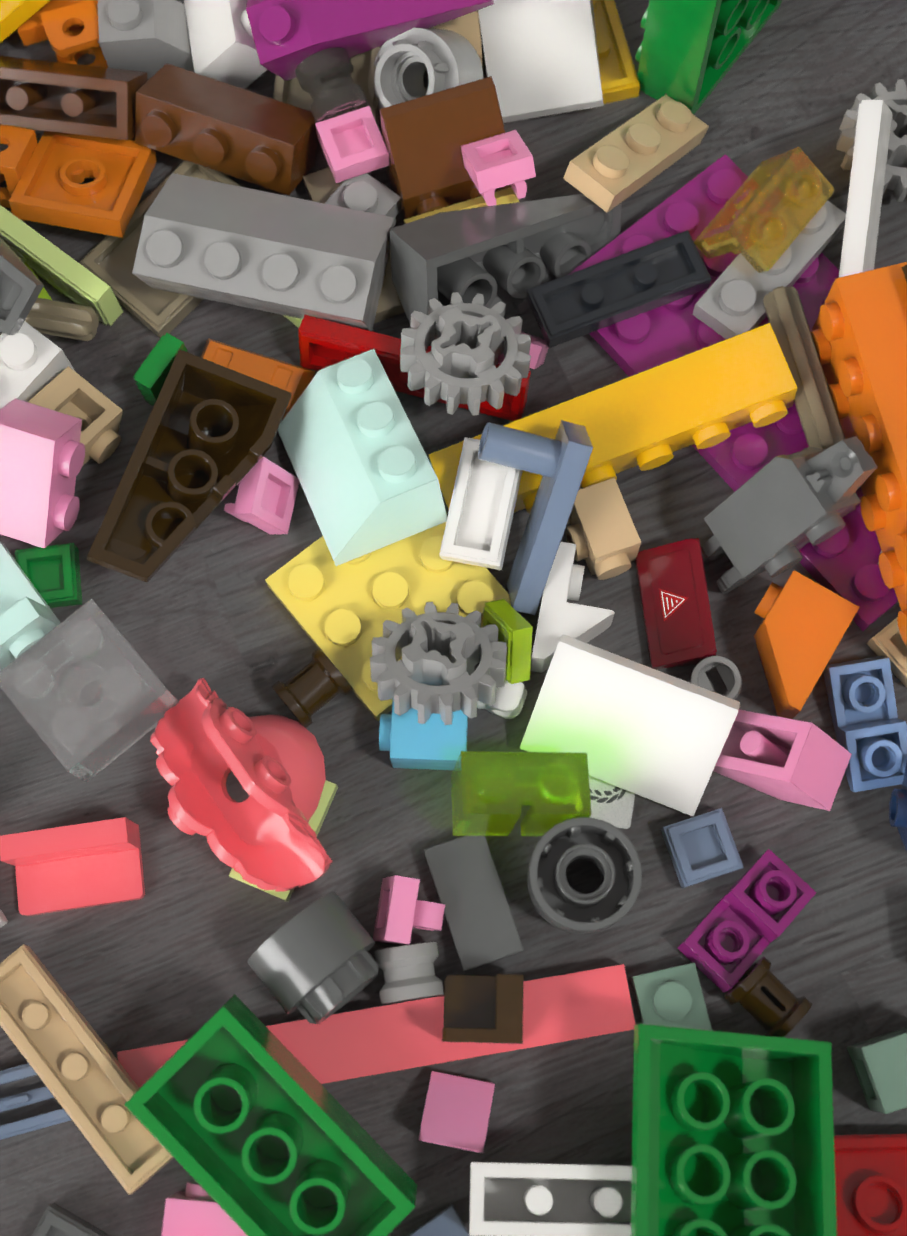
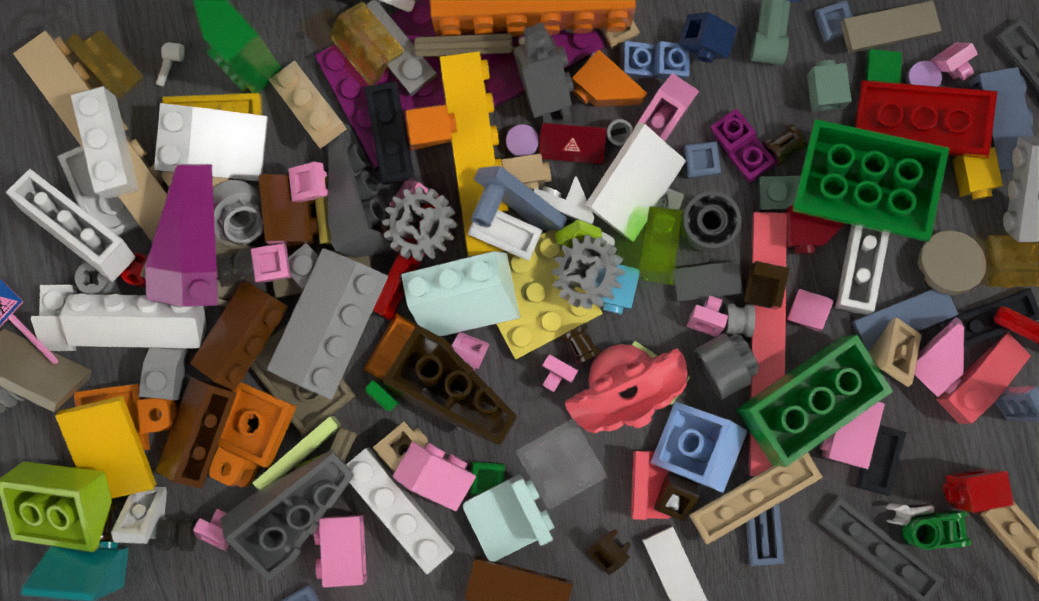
camera: 80 degrees left, 10 degrees up
(61, 918) = (677, 496): none -> dark brown slope
(153, 941) = (699, 446): none -> light blue slope
(253, 656) = (558, 371): none -> bright pink tile
(602, 1077) = (808, 232): none -> dark red slope
(638, 325) = (429, 126): none -> orange slope
(660, 517) = (522, 140): none -> lavender tile

